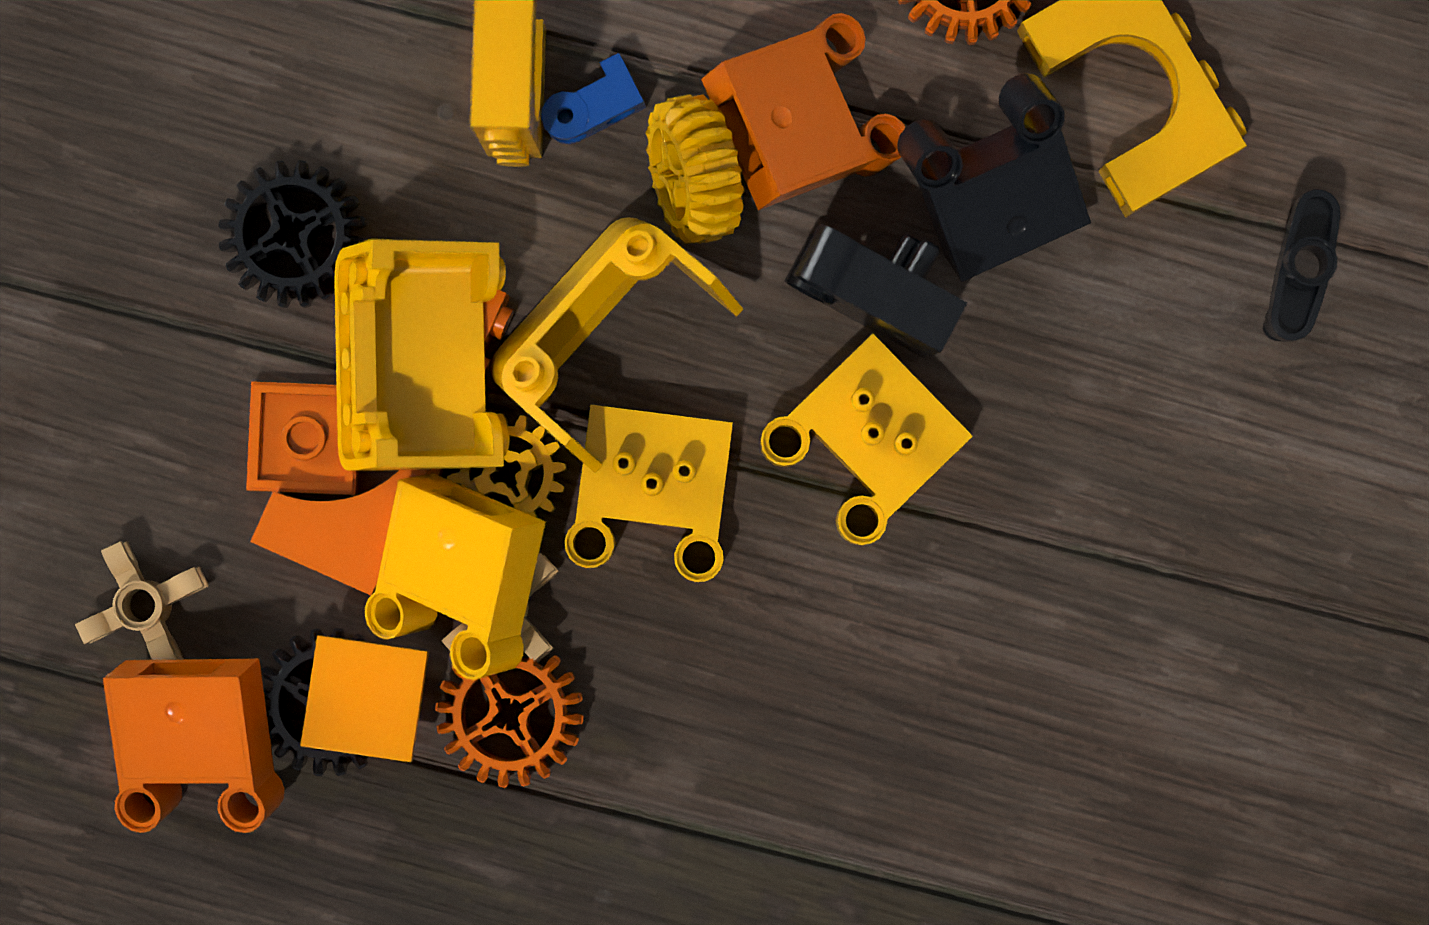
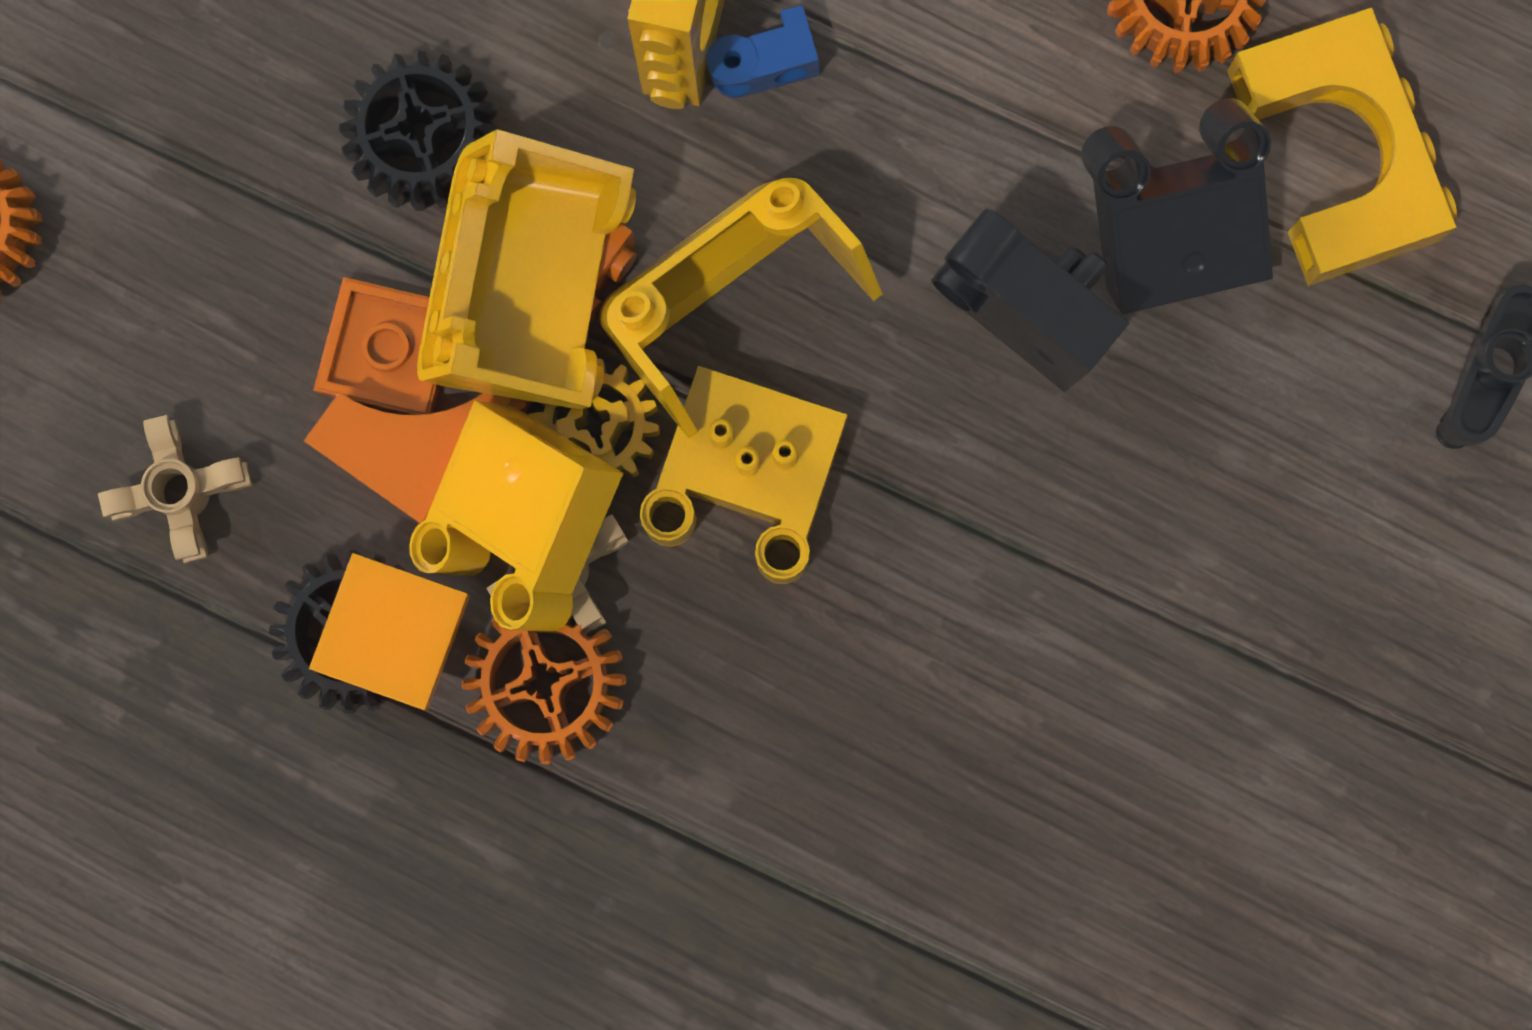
camera: 15 degrees right, 5 degrees down
(191, 726) = (197, 626): orange piece -> none
(694, 168) = (859, 137): yellow gear -> none
(793, 117) = (973, 104): orange piece -> none
(878, 427) = (1001, 452): yellow piece -> none

